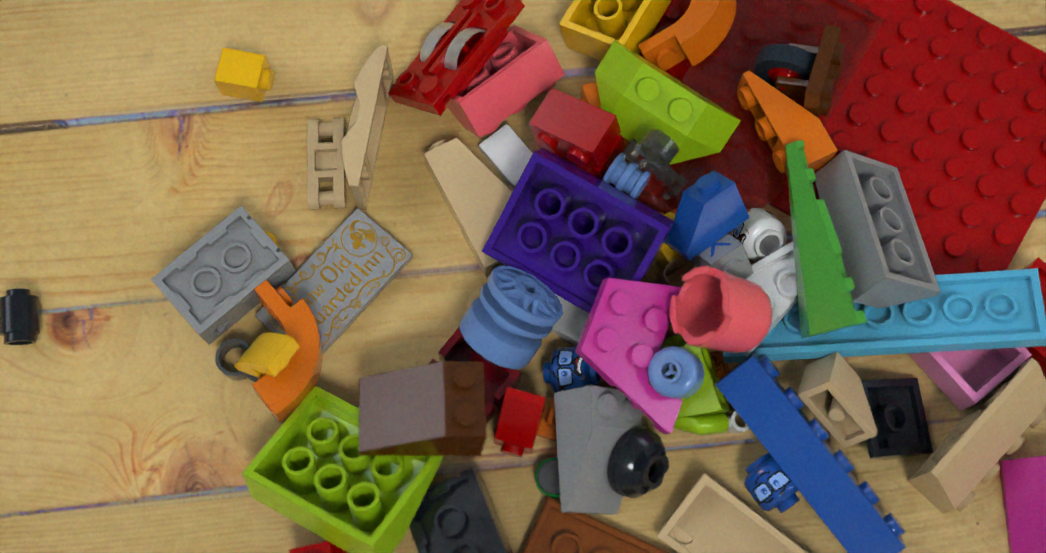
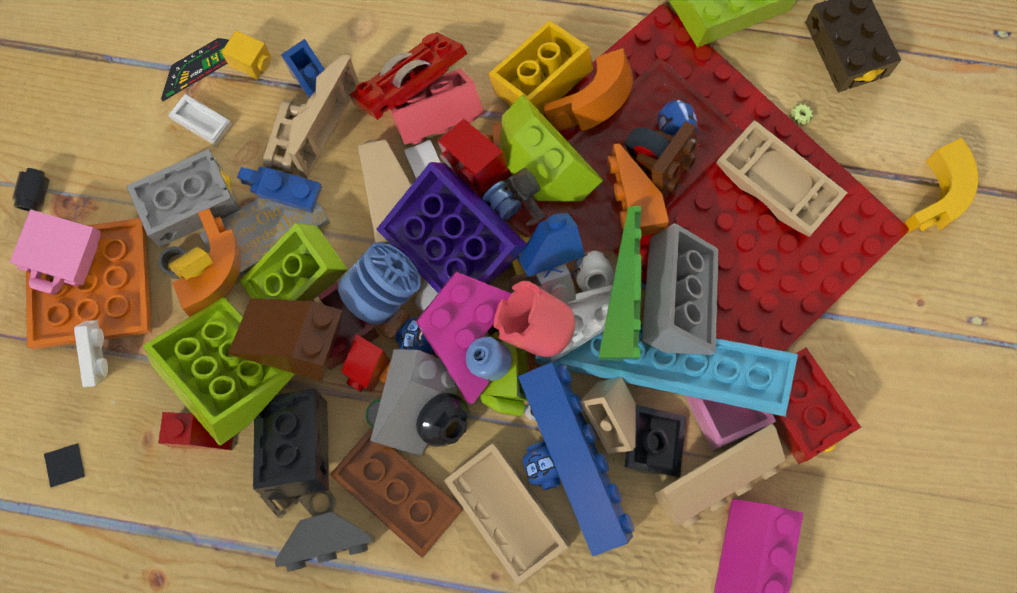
camera: 20 degrees right, 0 degrees up
(82, 383) = (56, 249): none -> bright pink piece
(131, 416) = (113, 292): none -> orange plate
(165, 487) = (89, 348): none -> white plate
(180, 105) = (195, 67): none -> black sticker
(207, 171) = (200, 120): none -> white tile
(327, 74) = (303, 66): none -> blue slope
(343, 230) = (282, 187): none -> blue hinge
(390, 327) = (295, 267): none -> lime slope
(537, 366) = (393, 325): none -> clear orange tile
(804, 23) = (674, 115): none -> blue head
(944, 65) = (780, 179): none -> tan slope

